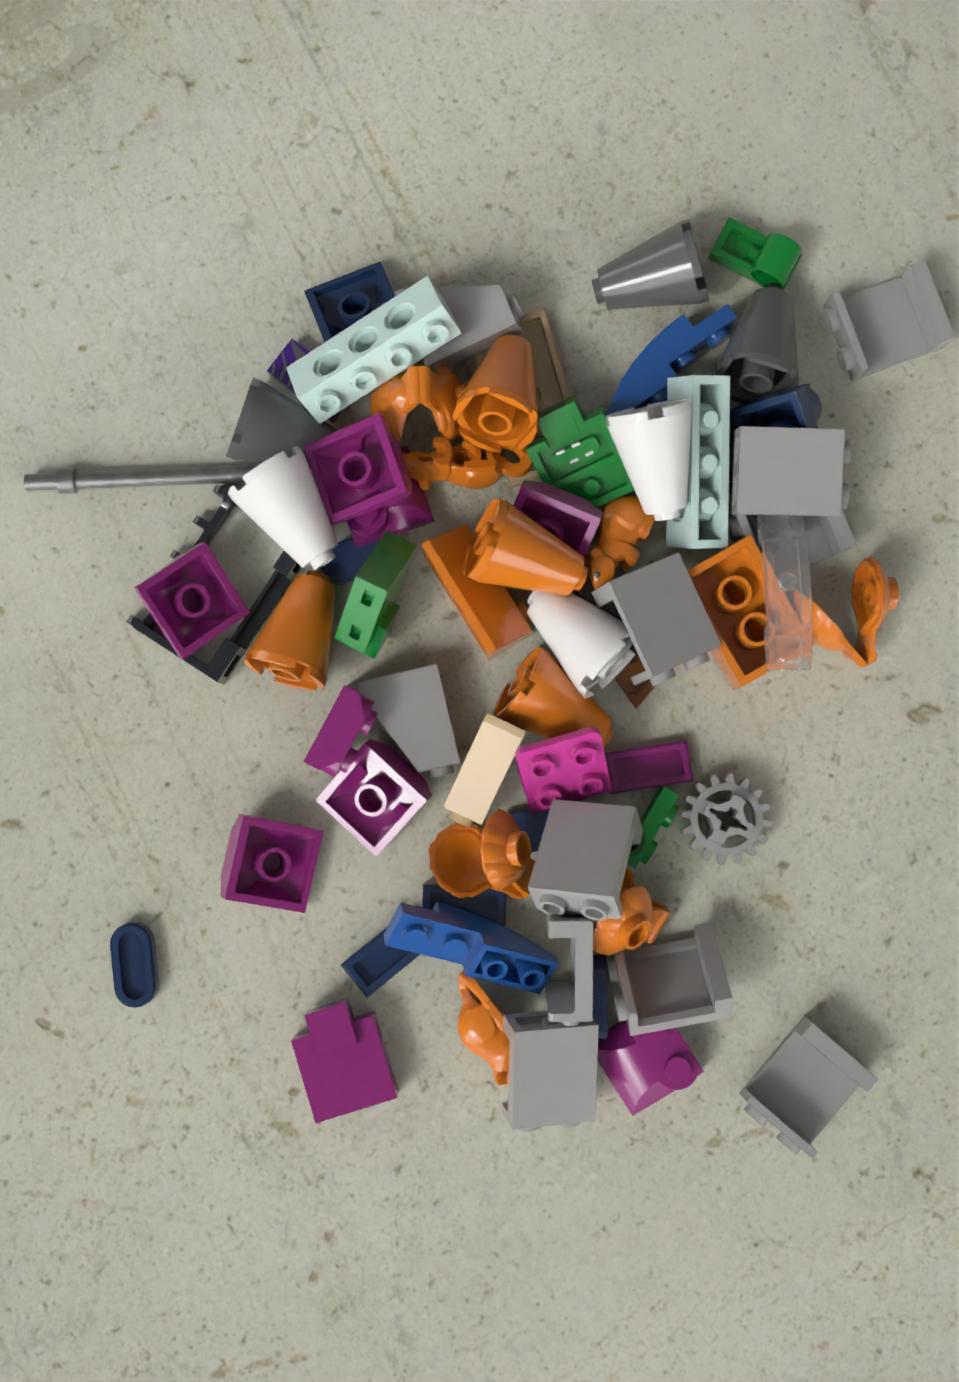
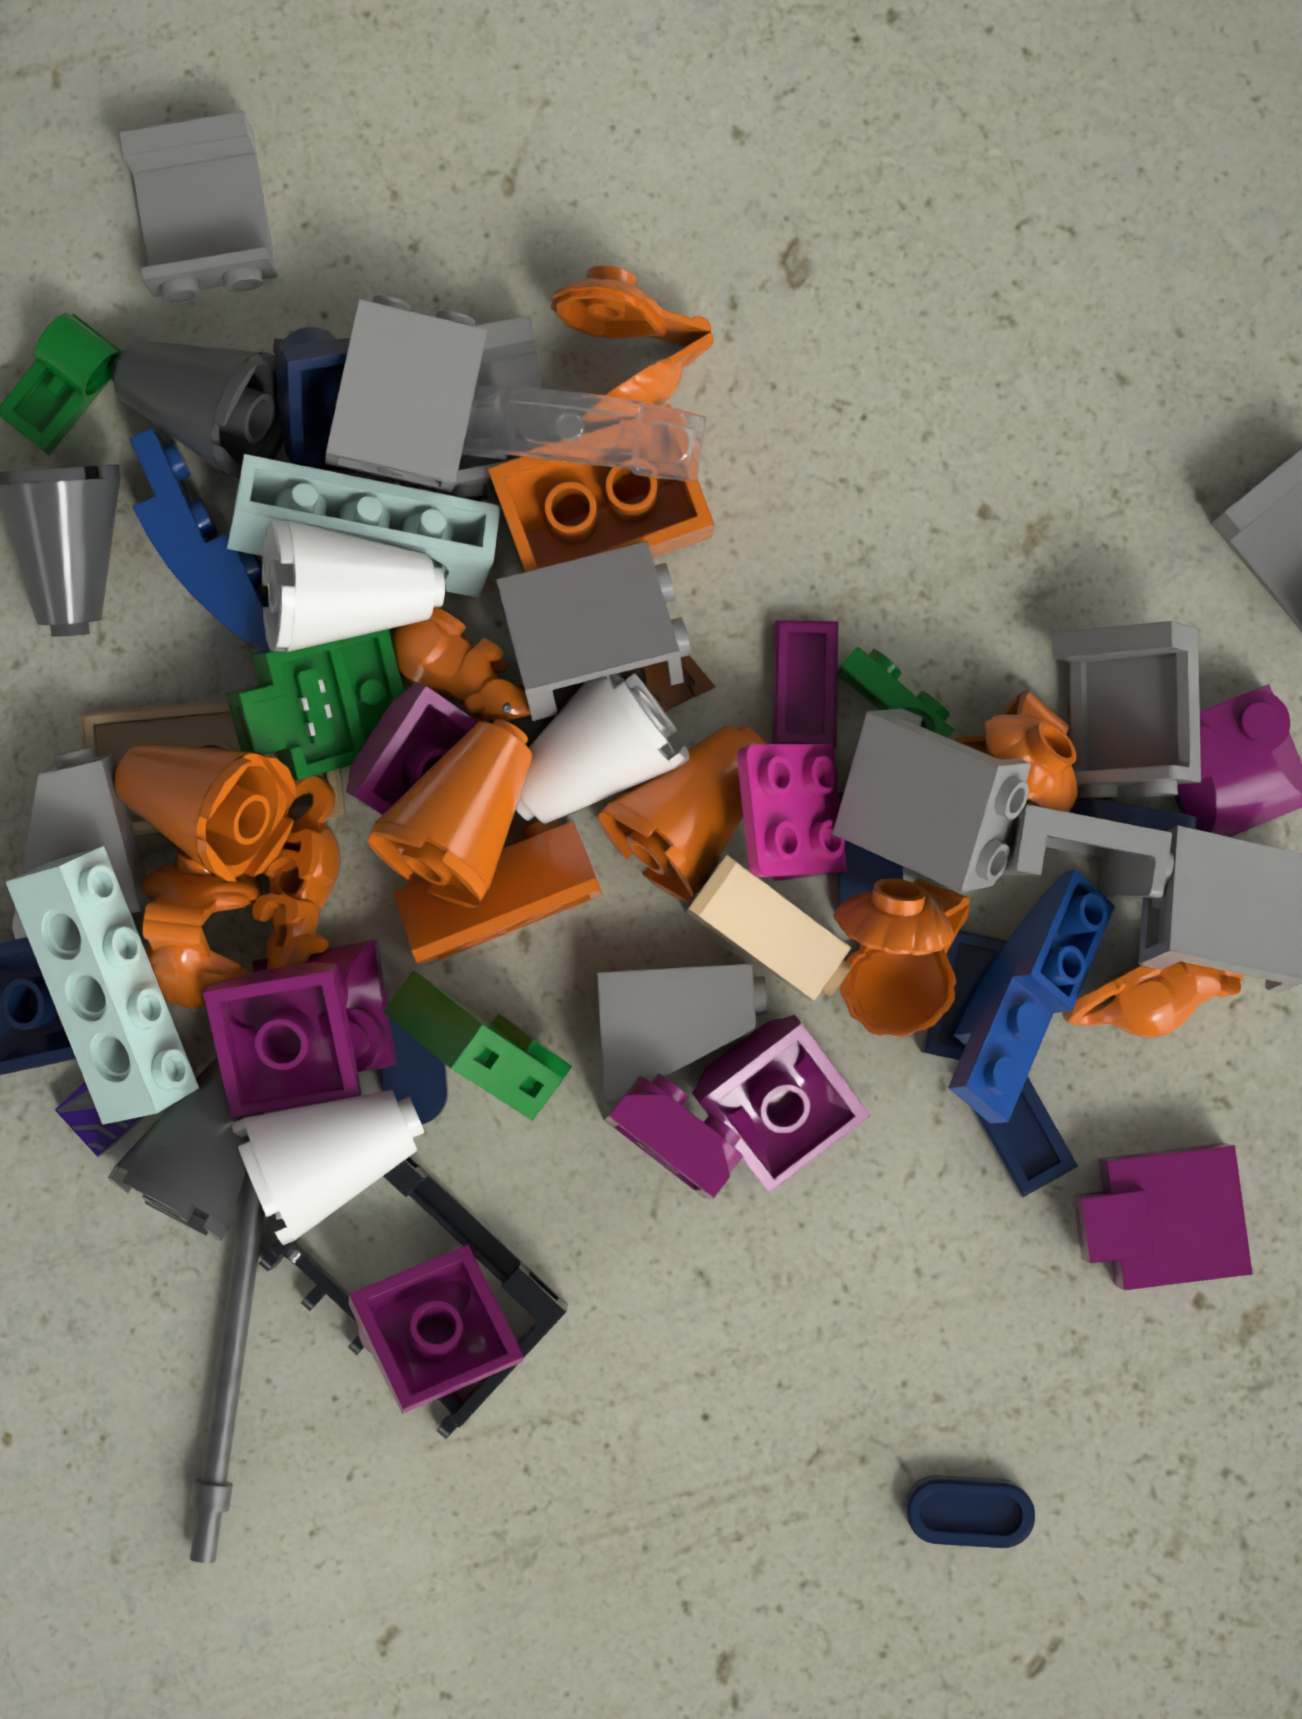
camera: 85 degrees left, 0 degrees up
(270, 863) = (853, 1278): magenta slope -> none
(298, 634) = (514, 1176): orange cone -> none
(735, 802) = (925, 603): light grey gear -> none

